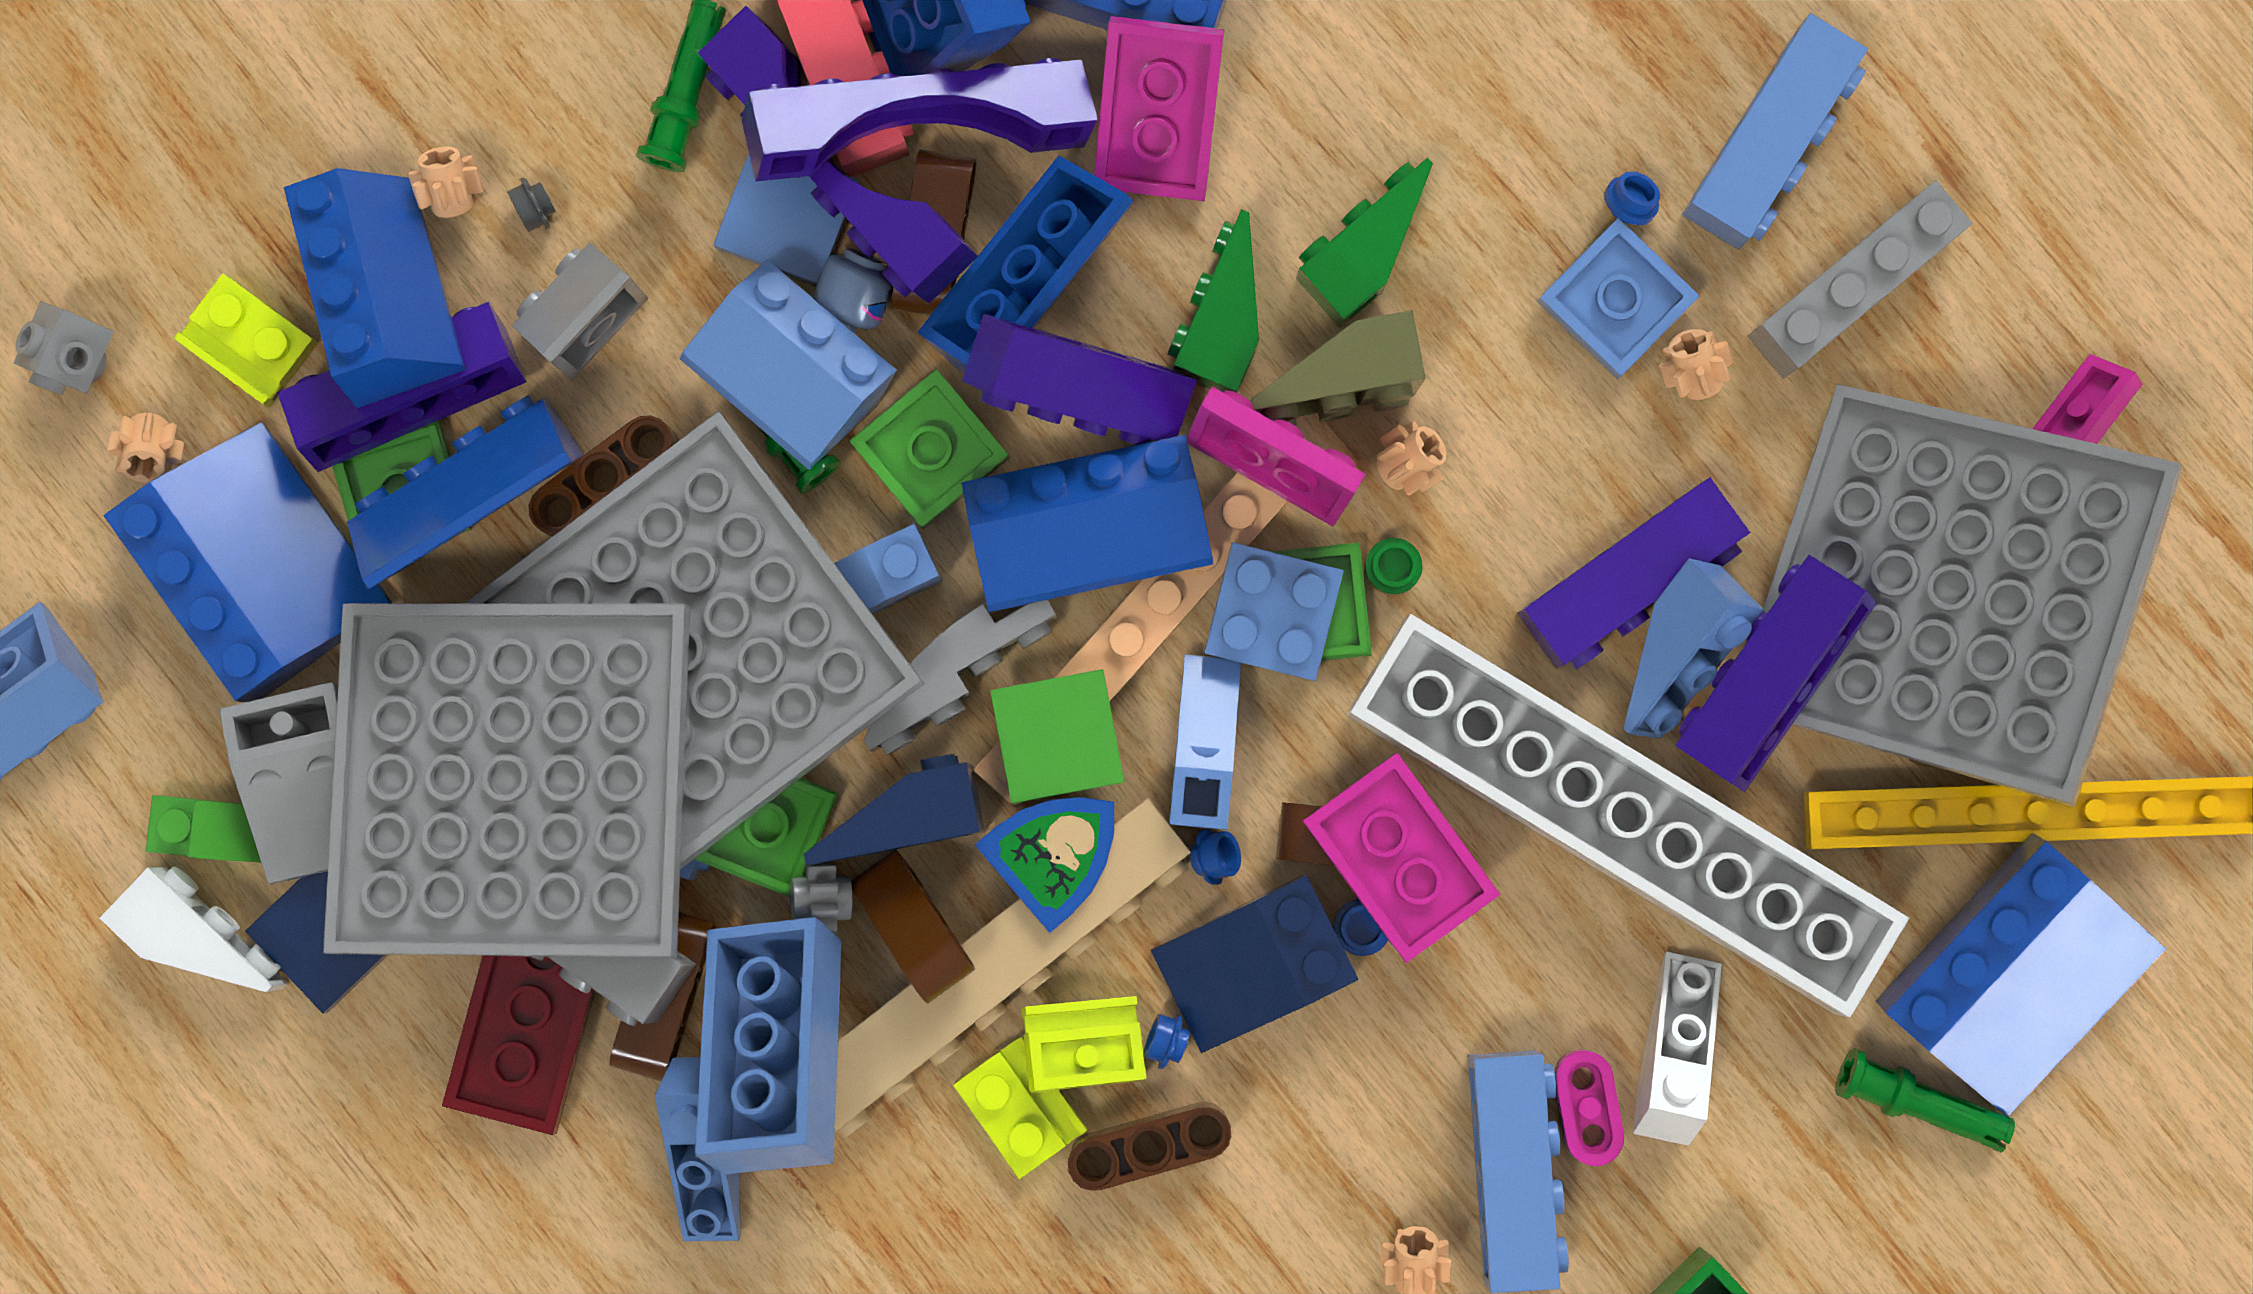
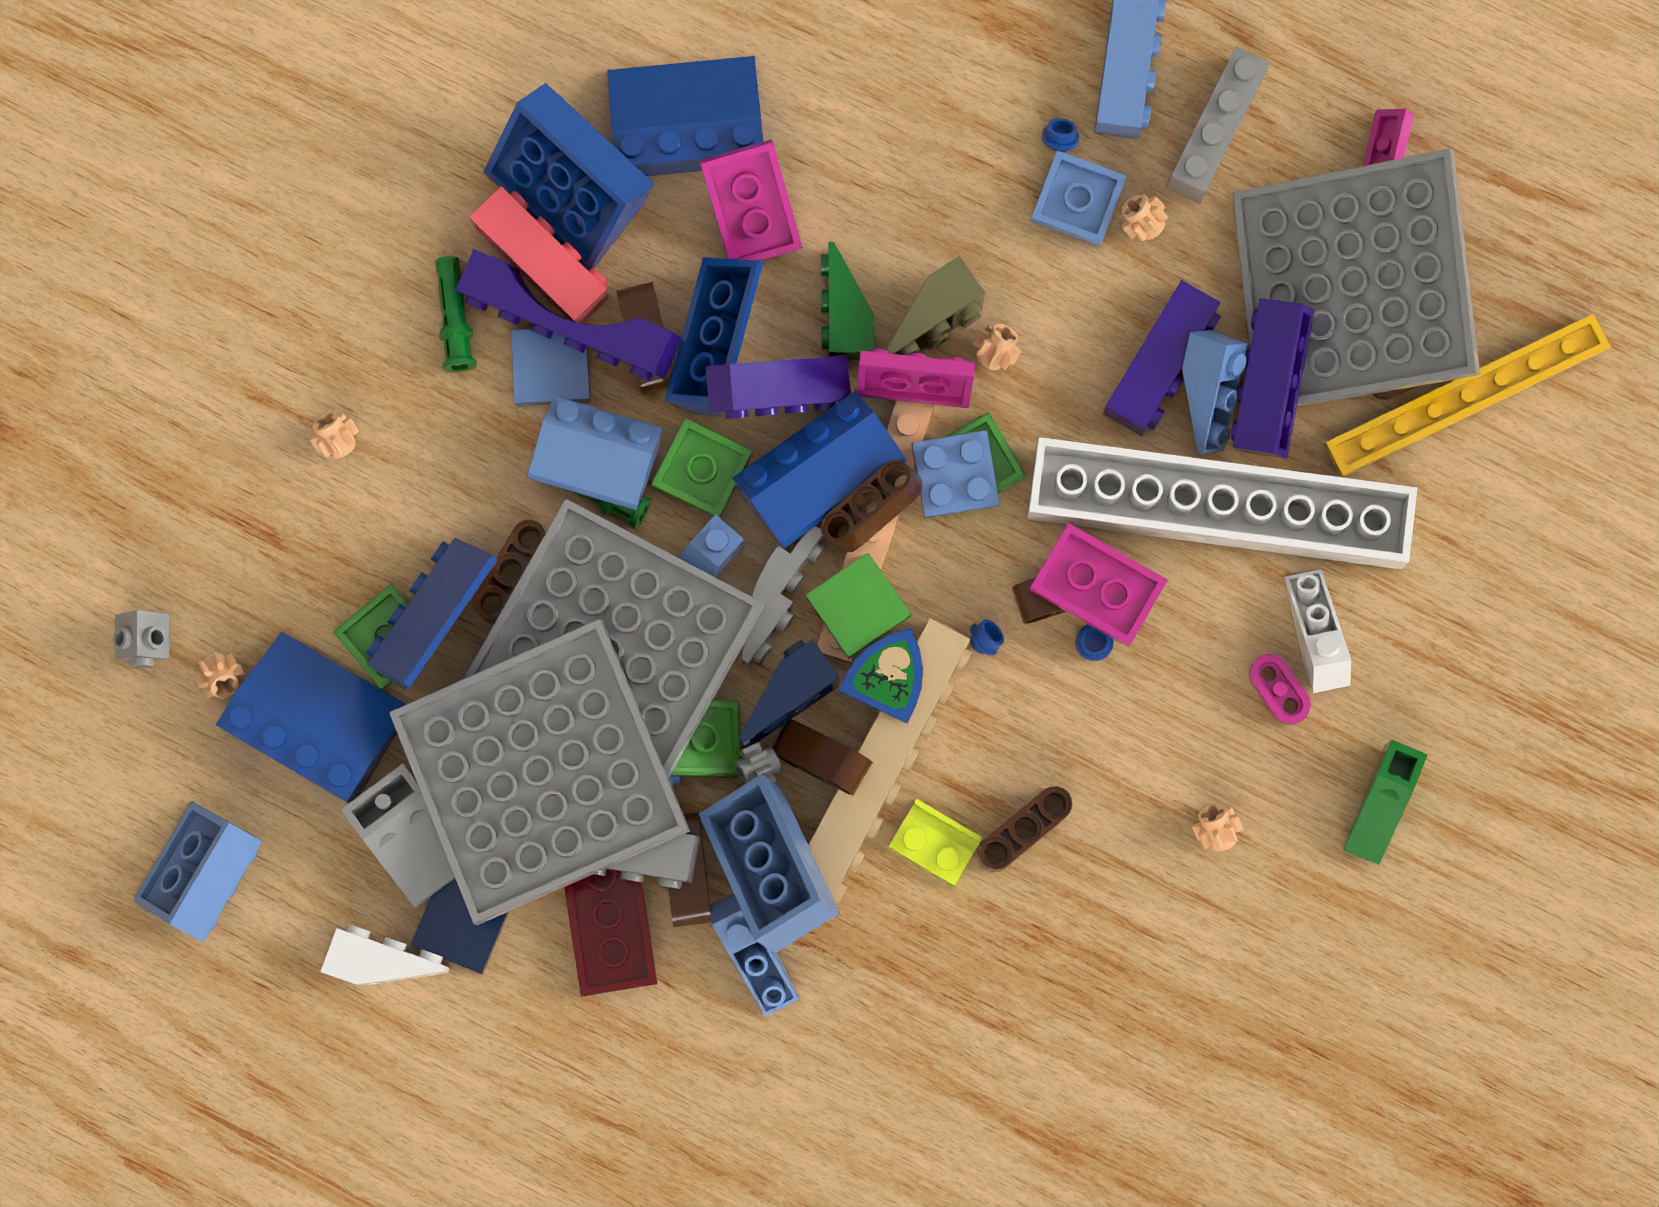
camera: 25 degrees left, 5 degrees down
(200, 829) = (358, 894): bright green slope -> none
(246, 340) = (250, 585): neon yellow plate -> none
(332, 429) = (362, 569): dark purple brick -> none
(373, 283) = (320, 512): blue slope -> none
(532, 204) = (391, 427): dark grey plate -> none
(579, 309) = (451, 475): light grey slope -> none
(854, 289) = (614, 391): sand blue head -> none
(1030, 105) = (671, 236): arch -> none
(1083, 1044) = (957, 785): neon yellow plate -> none
(1110, 598) = (853, 508): none -> reddish brown beam
(1166, 1040) = (1006, 762): blue plate -> none
(1205, 742) = (950, 572): slope -> none
(1254, 964) = (1039, 691): dark blue slope -> none
(1357, 262) = (912, 244): green slope -> none
(1393, 566) = (1015, 417): green plate -> none
(1515, 1171) = (1252, 746): medium blue brick -> none
(1900, 1093) = (1463, 598): green pin -> none
(2020, 974) = (1502, 495): slope -> none

